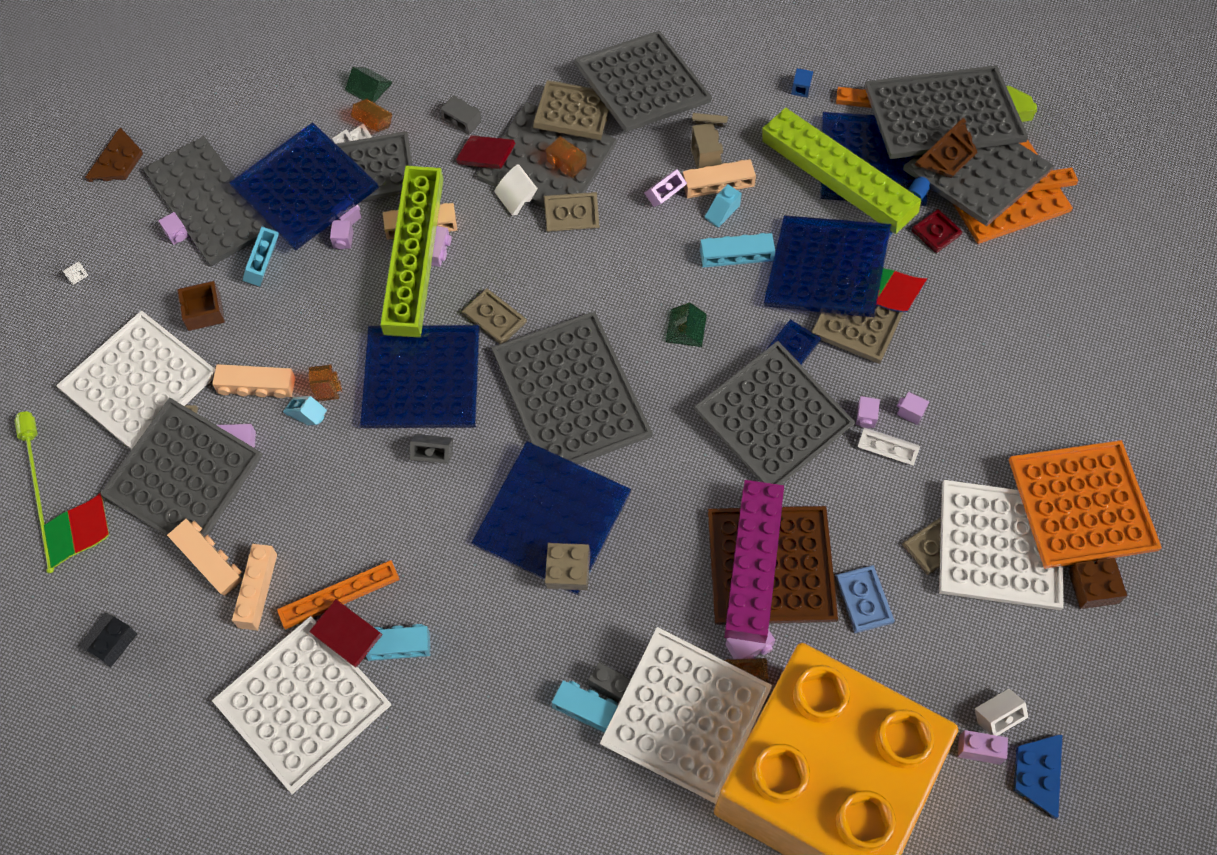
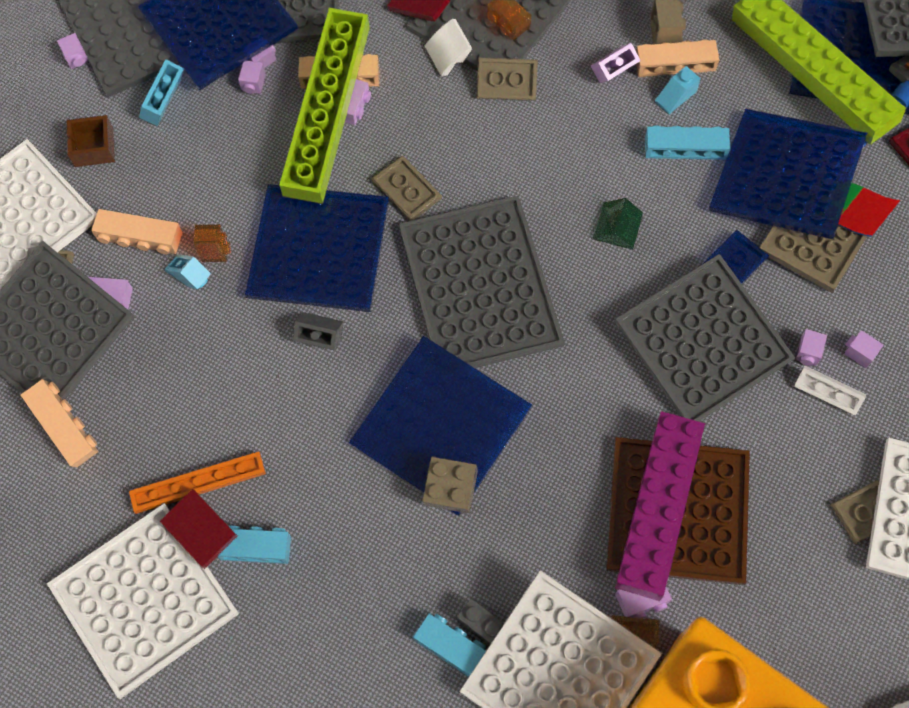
camera: 10 degrees right, 5 degrees up
(254, 587) = (108, 463): light nougat brick -> none
(864, 599) = (779, 563): medium blue tile -> none

